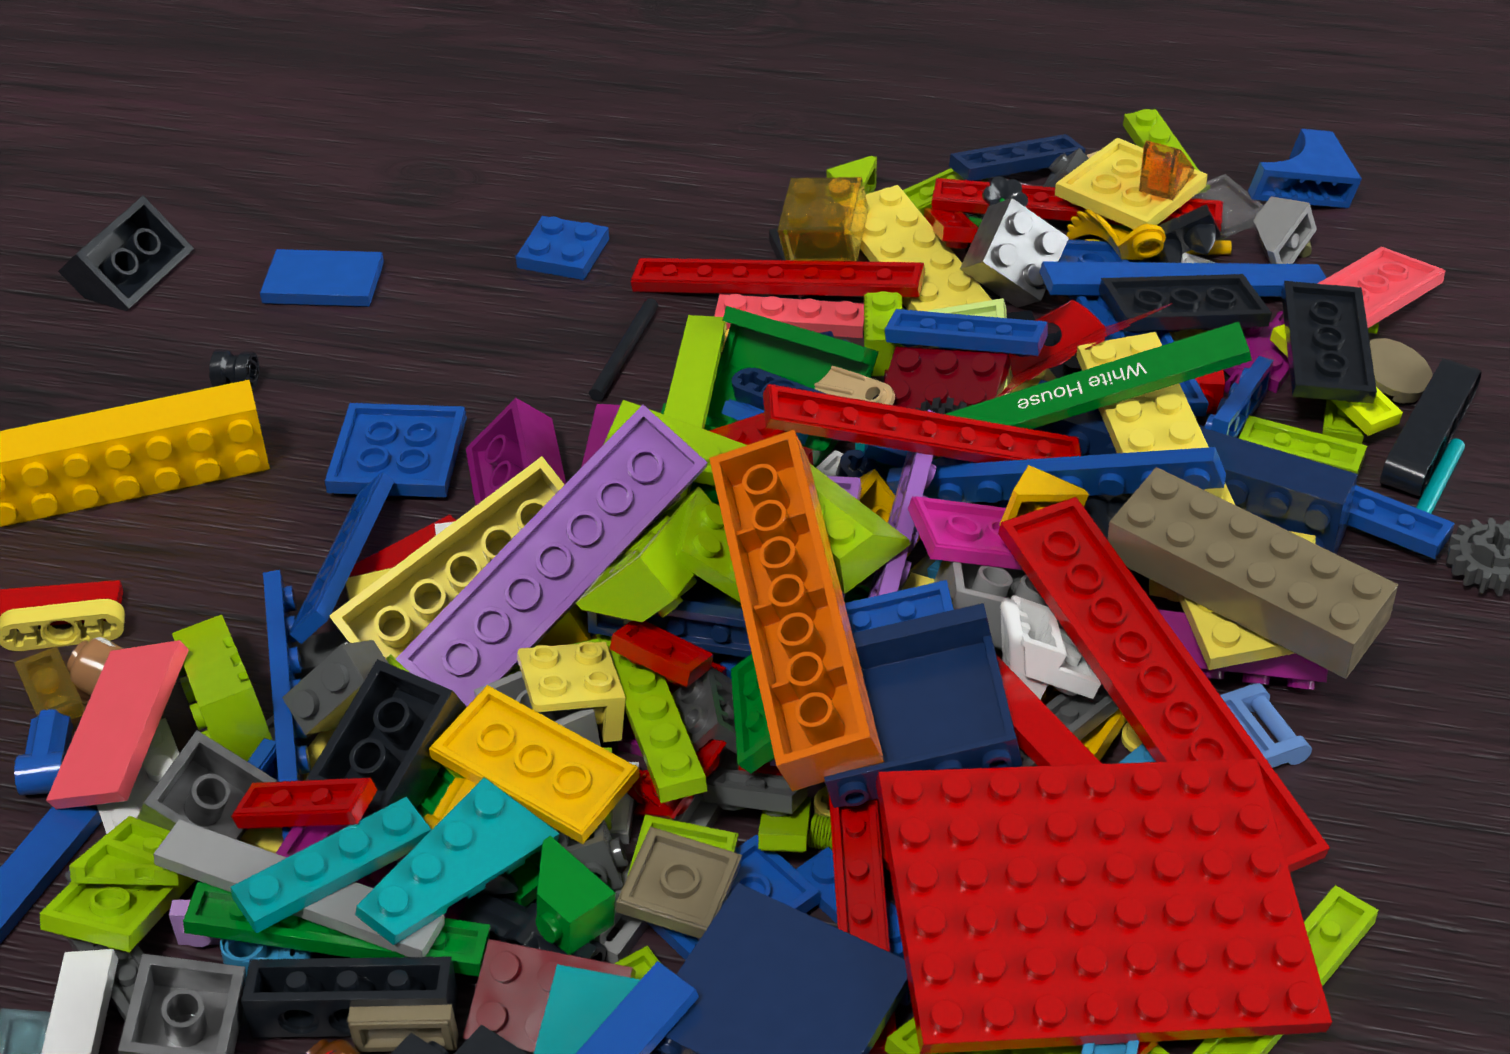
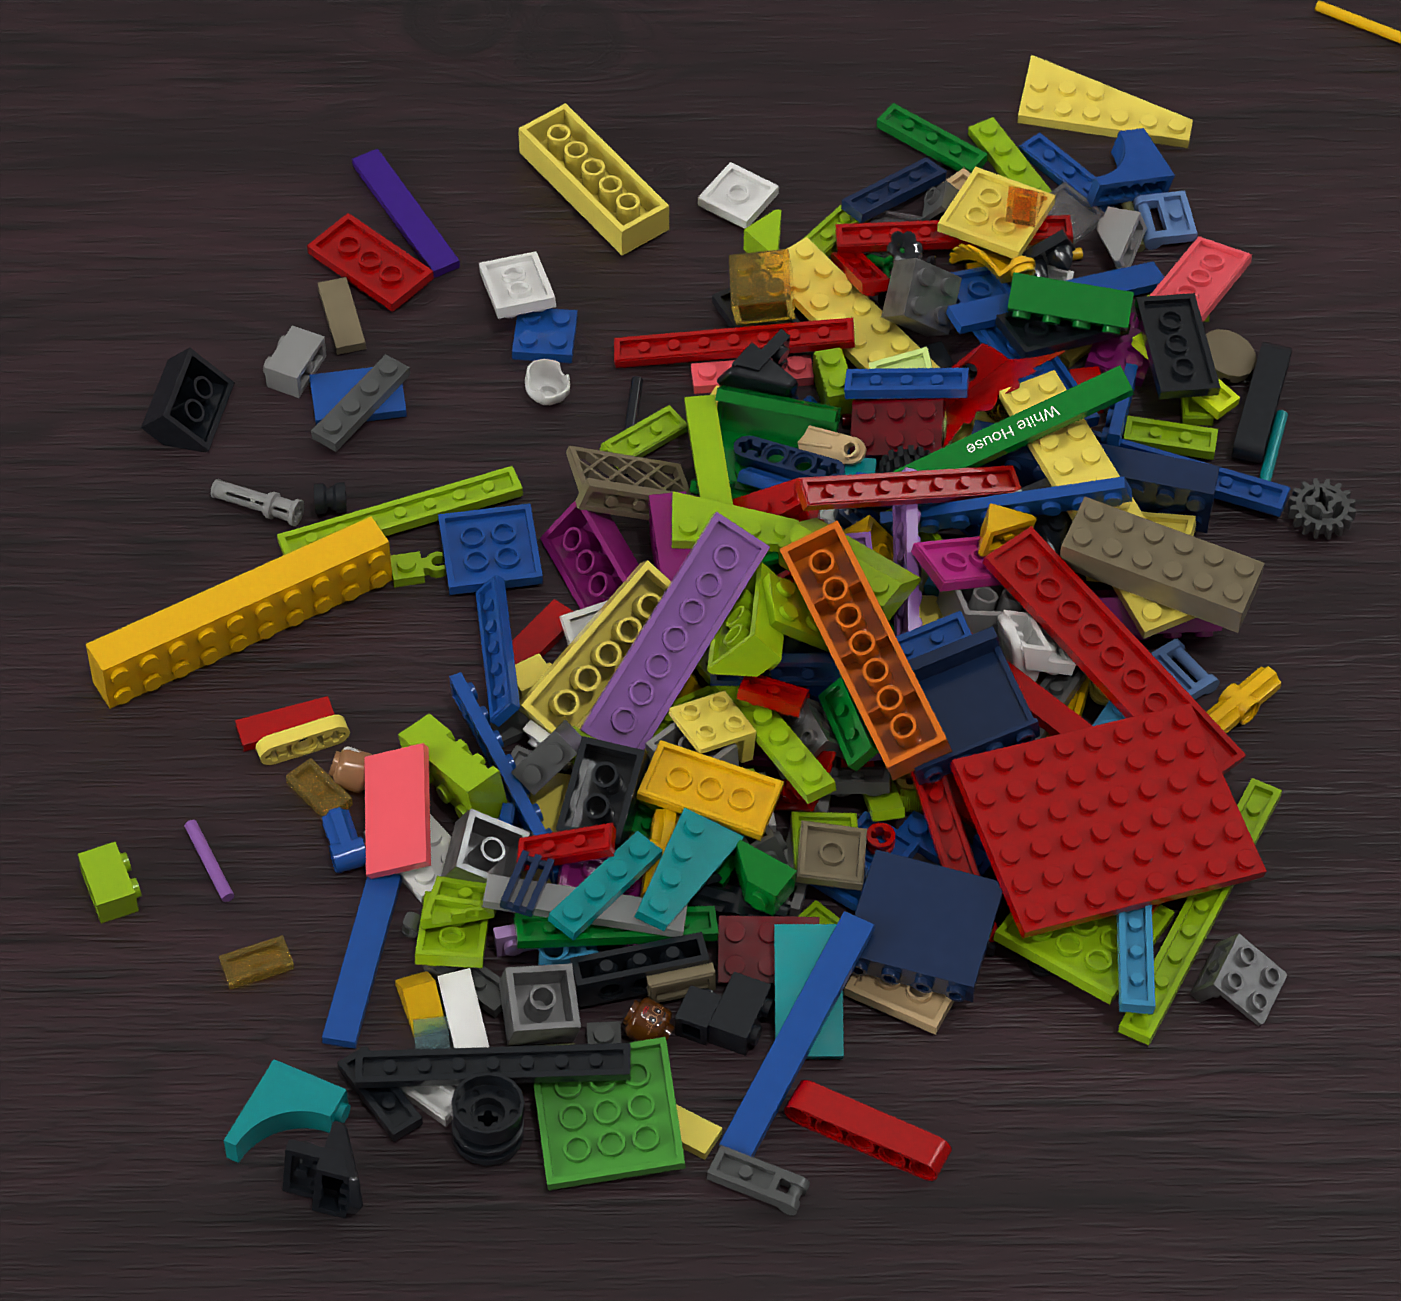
camera: 15 degrees left, 10 degrees up
(33, 978) = (419, 997): none -> yellow slope
(123, 349) = (269, 504): none -> light grey pin
(216, 837) = (535, 863): none -> dark blue tile
(264, 229) = (293, 361): none -> light grey brick
(296, 457) = (412, 569): none -> lime plate
(316, 281) = (360, 402): none -> dark grey plate
(333, 395) = (416, 508): none -> lime plate
(343, 202) = (341, 316): none -> dark tan tile
(398, 157) = (370, 262): none -> red plate
(460, 122) = (405, 213): none -> dark purple tile
(539, 288) = (546, 382): none -> white hair
(546, 193) = (517, 285): none -> white plate
(567, 402) = (624, 495): none -> dark tan fence
(628, 359) = (647, 434): none -> lime tile
(676, 109) = (594, 179): none -> light yellow brick
(763, 862) = (887, 833): none -> red bush
(793, 294) = (763, 369): none -> black piece
(834, 143) = (738, 195): none -> white plate
(1072, 117) = (930, 139): none -> green plate
(1196, 271) = (1070, 302): none -> green slope
(1218, 158) = (1058, 165): none -> blue tile
(1259, 109) = (1079, 104): none -> light yellow wing
(1342, 780) = (1242, 701): none -> yellow piece
(1354, 225) = (1174, 216): none -> medium blue plate

